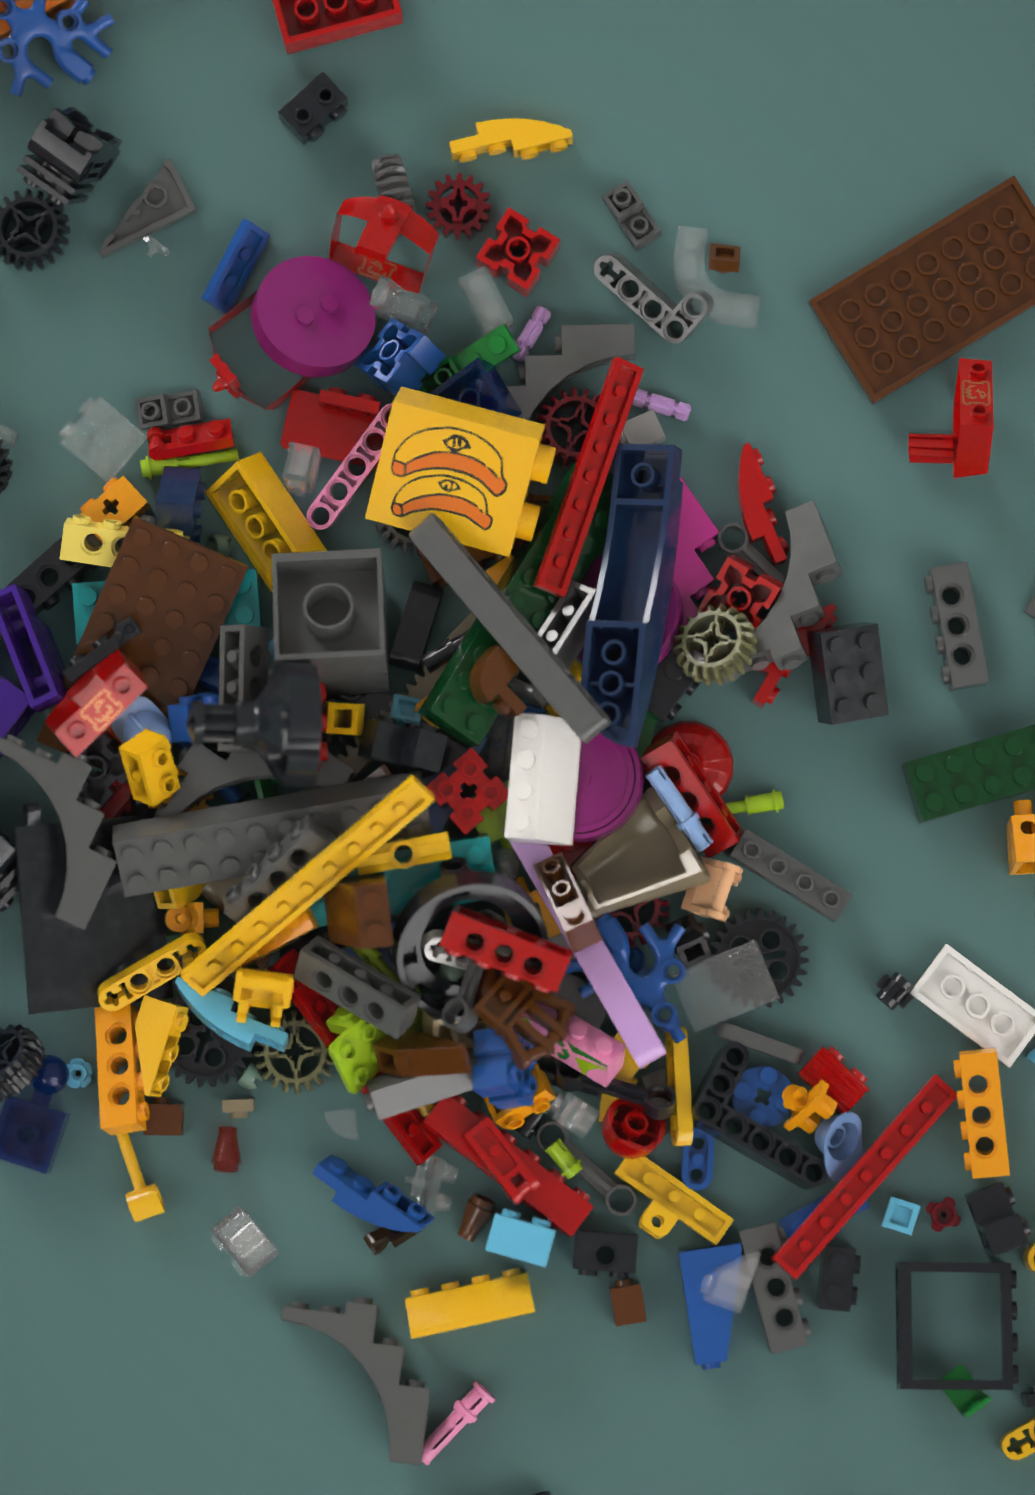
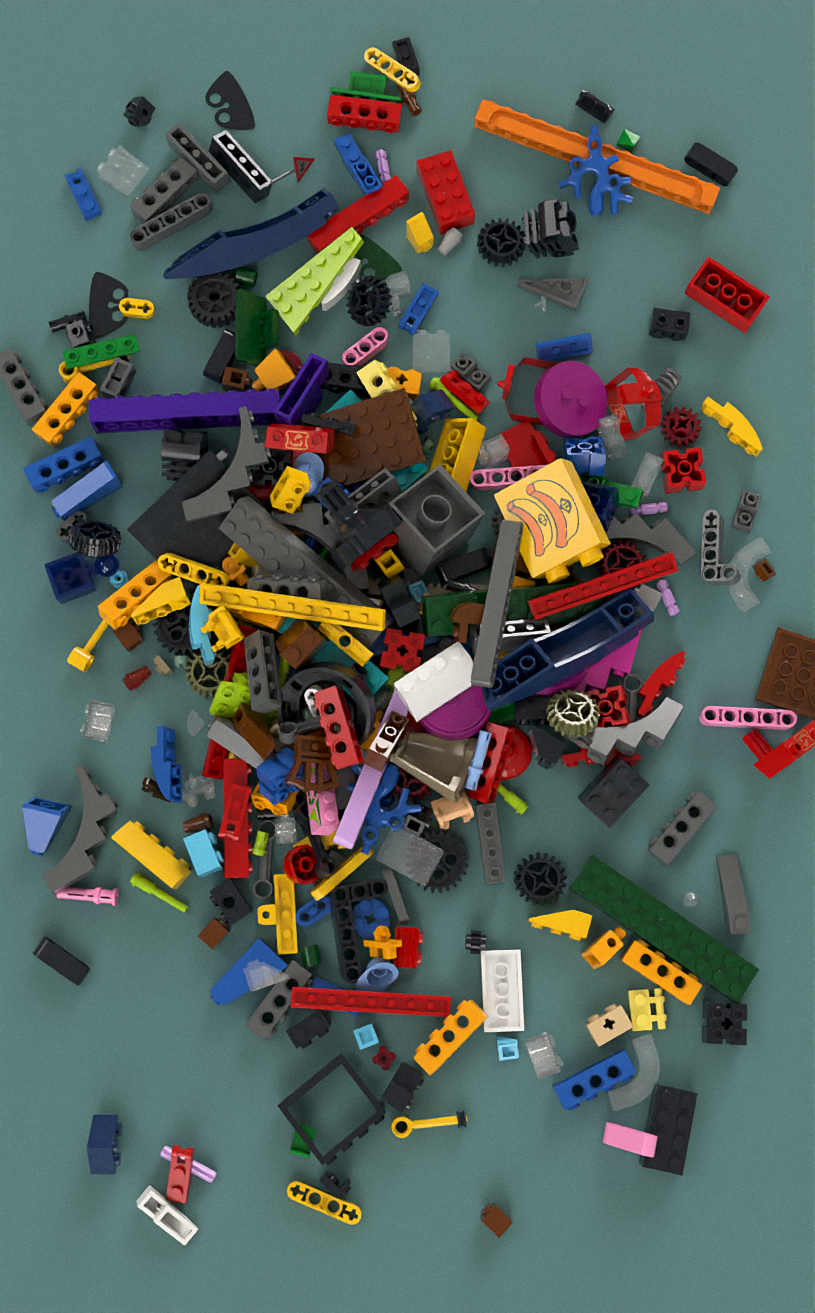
camera: 50 degrees right, 5 degrees down
(23, 507) = (367, 341): none -> bright pink beam
(30, 407) = (418, 308): none -> blue plate
(318, 1410) = (42, 822): none -> slope
(506, 1339) = (150, 887): none -> lime pin
(728, 712) = (545, 747): none -> black slope
(750, 1206) = (310, 955): none -> dark green beam
(877, 836) = (525, 870): none -> black gear
(895, 420) = (756, 716): none -> bright pink beam
(960, 857) = (569, 922): none -> yellow slope

